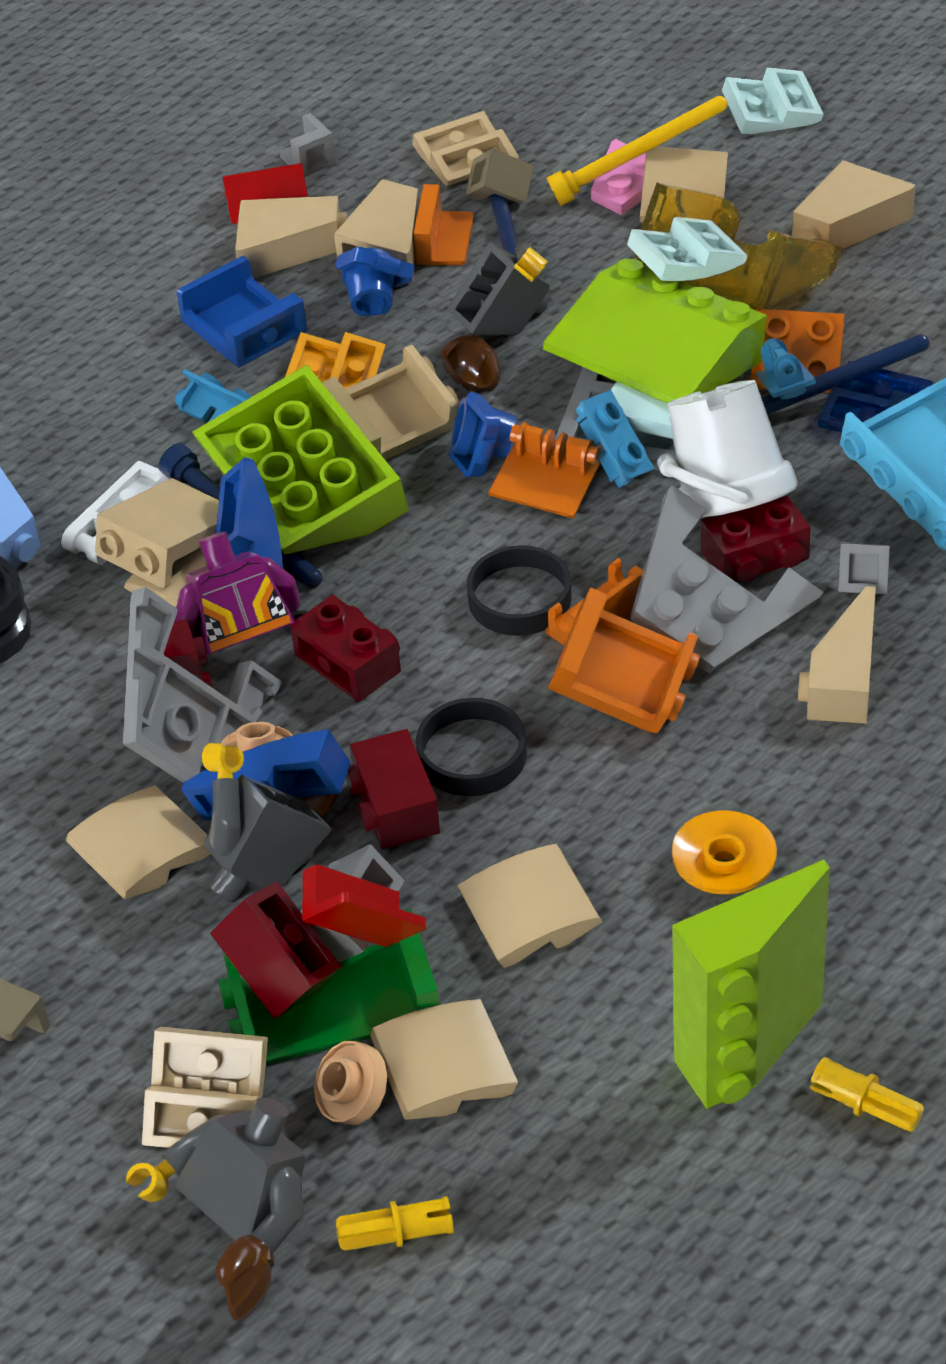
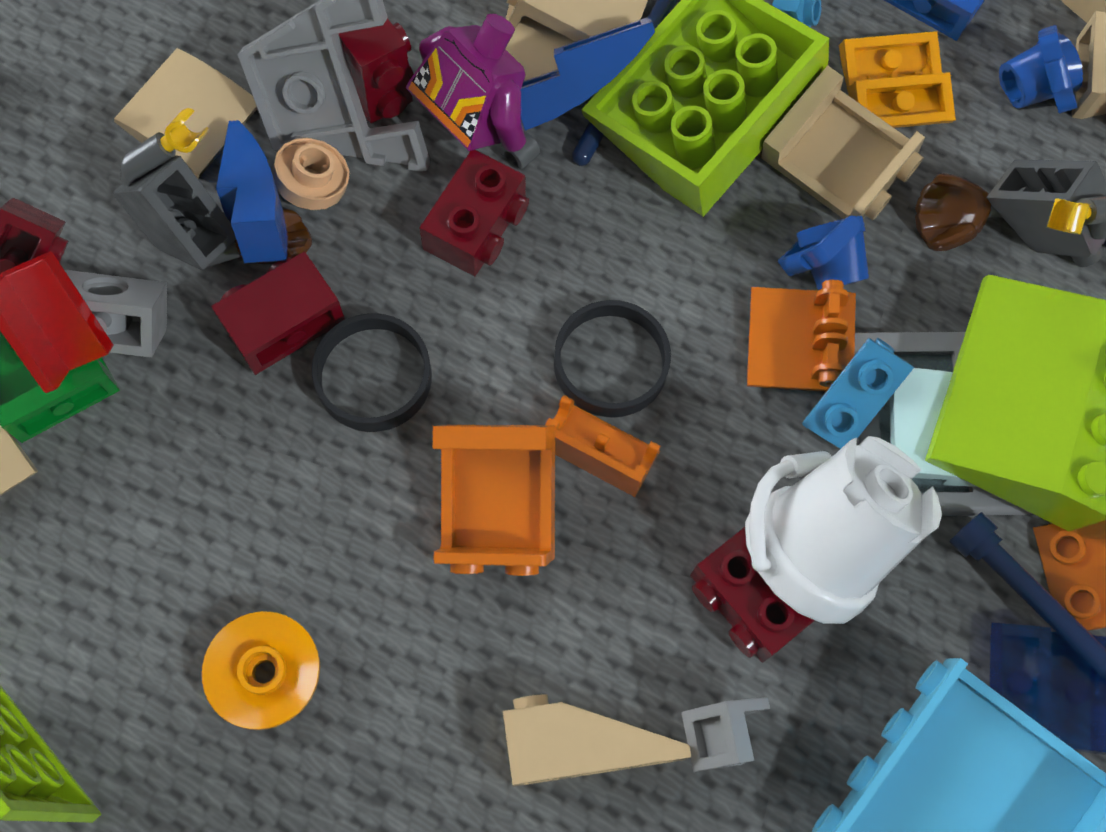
camera: 65 degrees right, 25 degrees up
(529, 904) = (165, 487): tan slope -> none
(690, 595) = (617, 556): light grey wing -> none
(783, 371) = (1038, 563): dark azure hinge -> none

